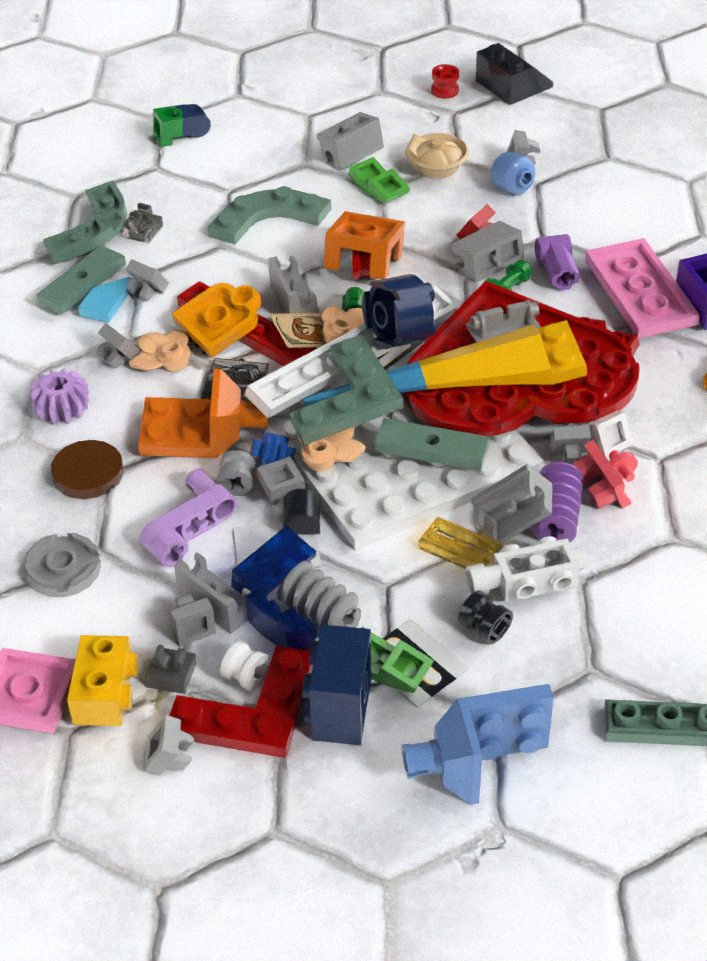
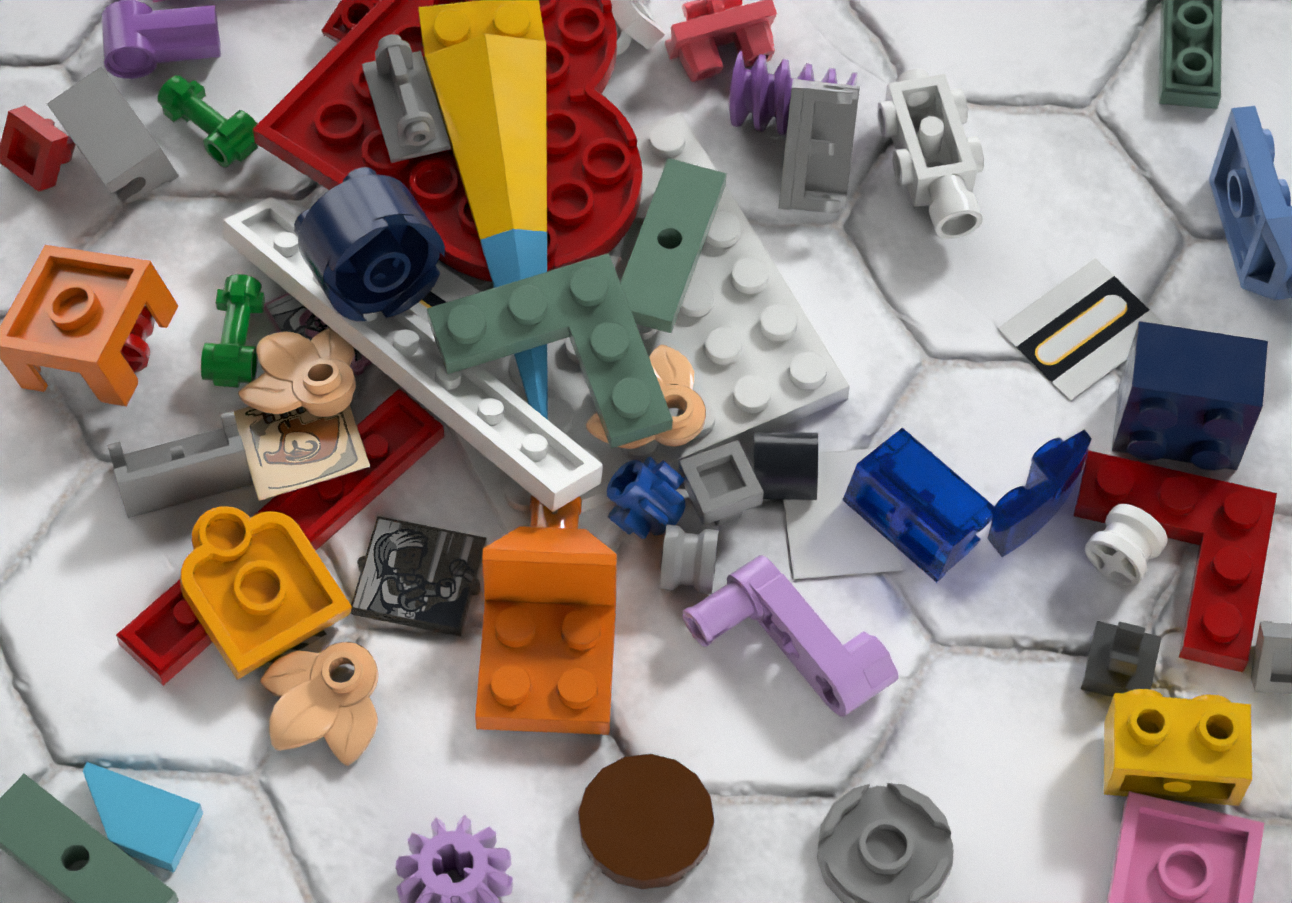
camera: 90 degrees left, 15 degrees up
(117, 345) = (306, 773): light grey tile -> none
(144, 277) = (99, 729): light grey tile -> none
(192, 619) = (1029, 623): light grey tile -> none
(201, 583) = (969, 593): light grey hinge -> none
(319, 597) = (996, 429): light grey piece -> none
(398, 665) = (1093, 359): bright green slope -> none
(457, 550) = (830, 280): clear yellow tile -> none
(489, 619) = (1025, 211): black wheel -> none
(569, 442) = (647, 69): light grey tile -> none

